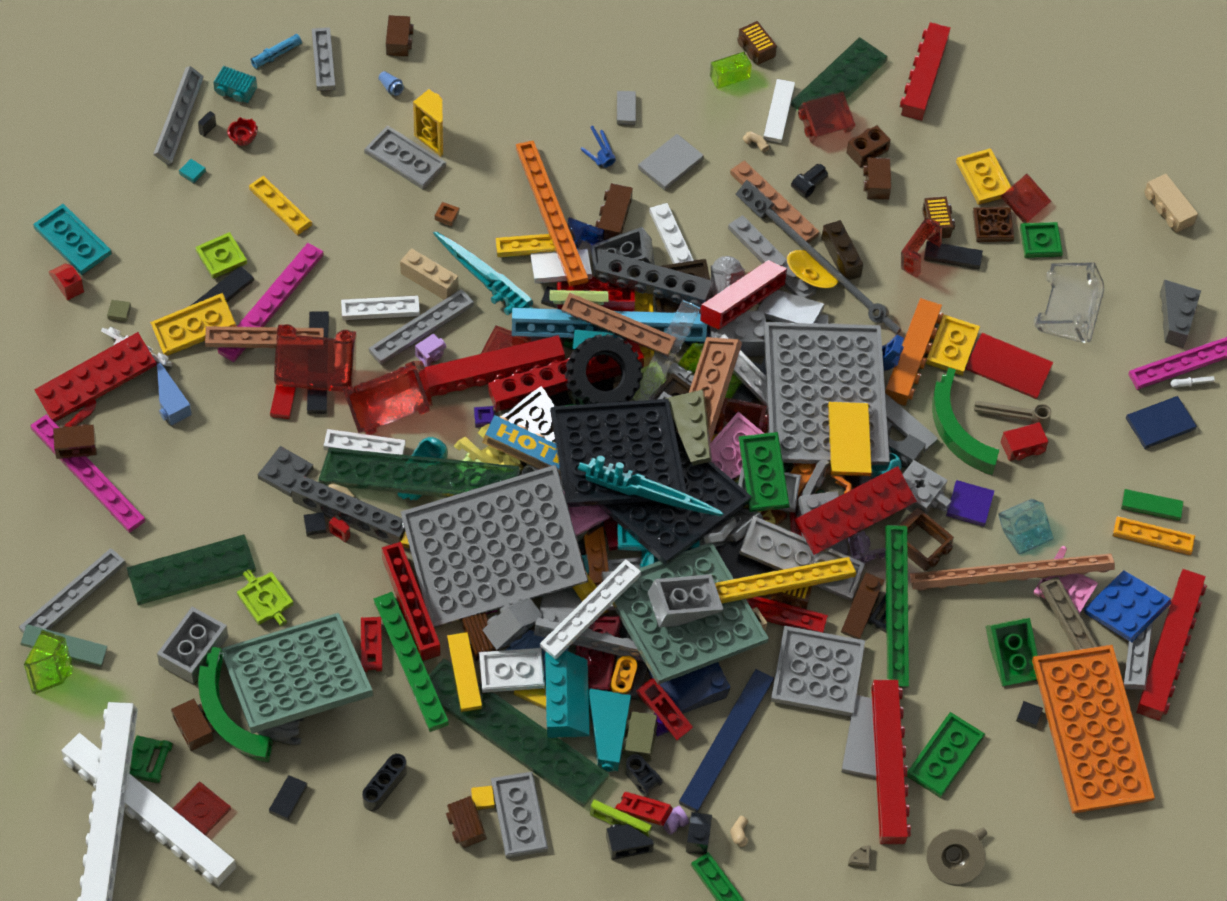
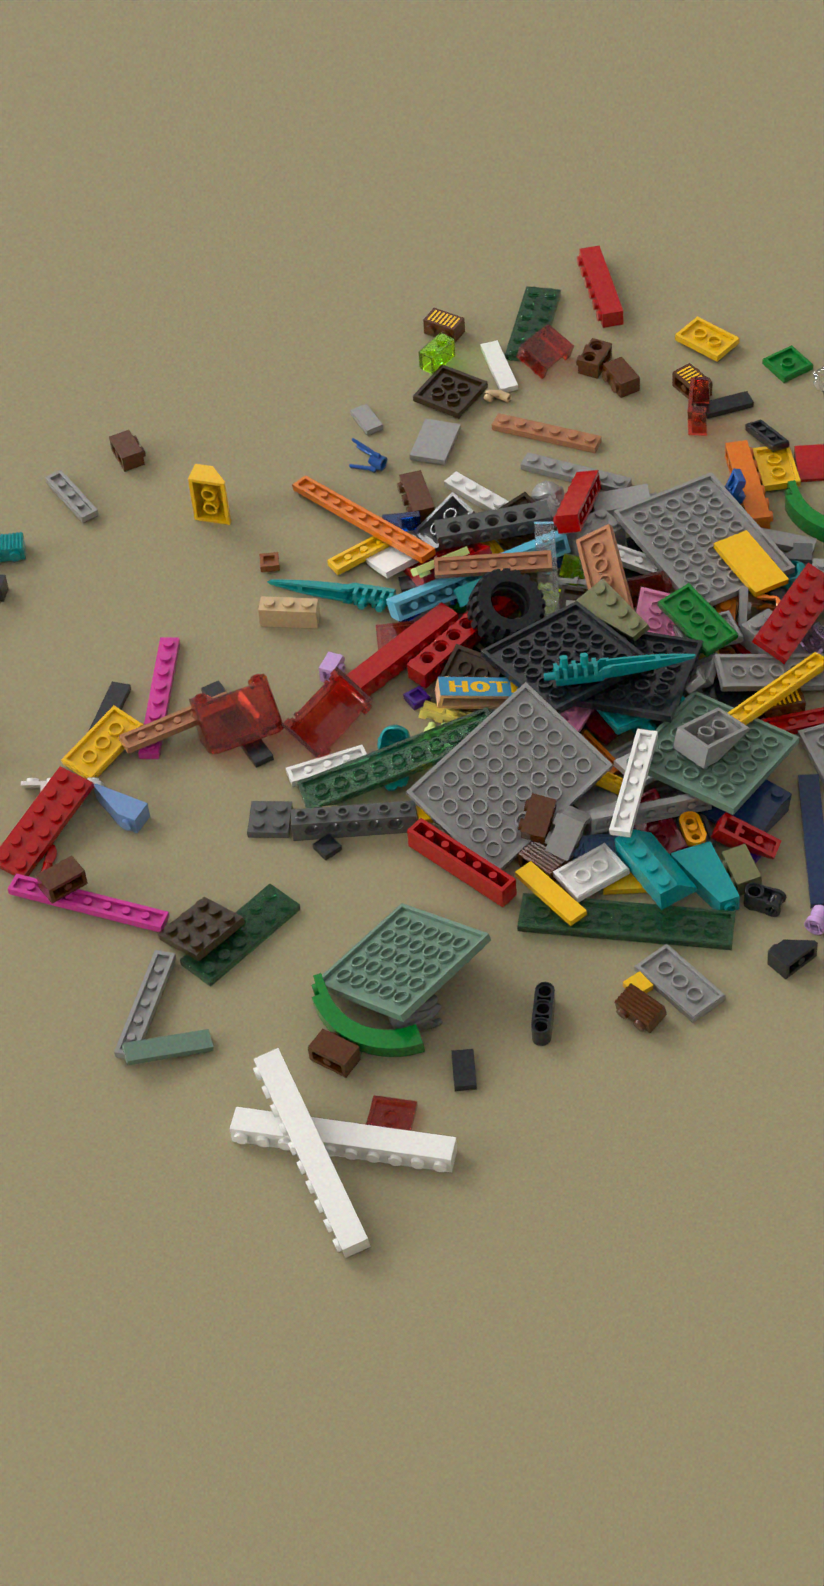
camera: 20 degrees left, 10 degrees down
(48, 662) = (169, 1059): clear neon green slope -> none
(119, 310) = (23, 765): olive tile -> none
(142, 756) = (306, 1091): green plate -> none
(160, 548) = (201, 928): none -> dark brown plate
(191, 643) = (289, 989): light grey brick -> none
(192, 171) = (13, 630): teal tile -> none
(221, 255) = (88, 681): lime plate -> none
(242, 131) = (39, 579): red hair -> none
(265, 598) = (326, 923): lime plate -> none
(269, 54) = (20, 513): dark azure pin -> none
(280, 205) = (113, 621): yellow tile -> none
(282, 402) = (227, 767): red tile -> none
(339, 529) = (354, 839): red plate -> none
(371, 643) = (445, 907): red plate -> none
(380, 307) = (263, 657): white plate -> none
(391, 83) = (148, 488): medium blue cone -> none
(405, 157) = (199, 538): light grey tile -> none
(411, 662) = (497, 909): green plate -> none
(421, 327) = (310, 655): light grey plate -> none
(493, 596) = (538, 818): none -> reddish brown brick
(614, 816) = (763, 941): lime tile -> none
(644, 808) = (786, 921): red plate -> none
(717, 115) = (450, 391): none -> dark brown plate
(763, 206) = (539, 438): dark grey bar -> none
(807, 183) = (564, 404): black piece -> none
(809, 270) = (618, 464): yellow hat -> none
(842, 250) = (632, 440): dark brown brick -> none
(966, 308) = (767, 435): none -> black tile
(993, 224) = (740, 370): reddish brown tile -> none
(1025, 198) = (753, 339): clear red tile -> none

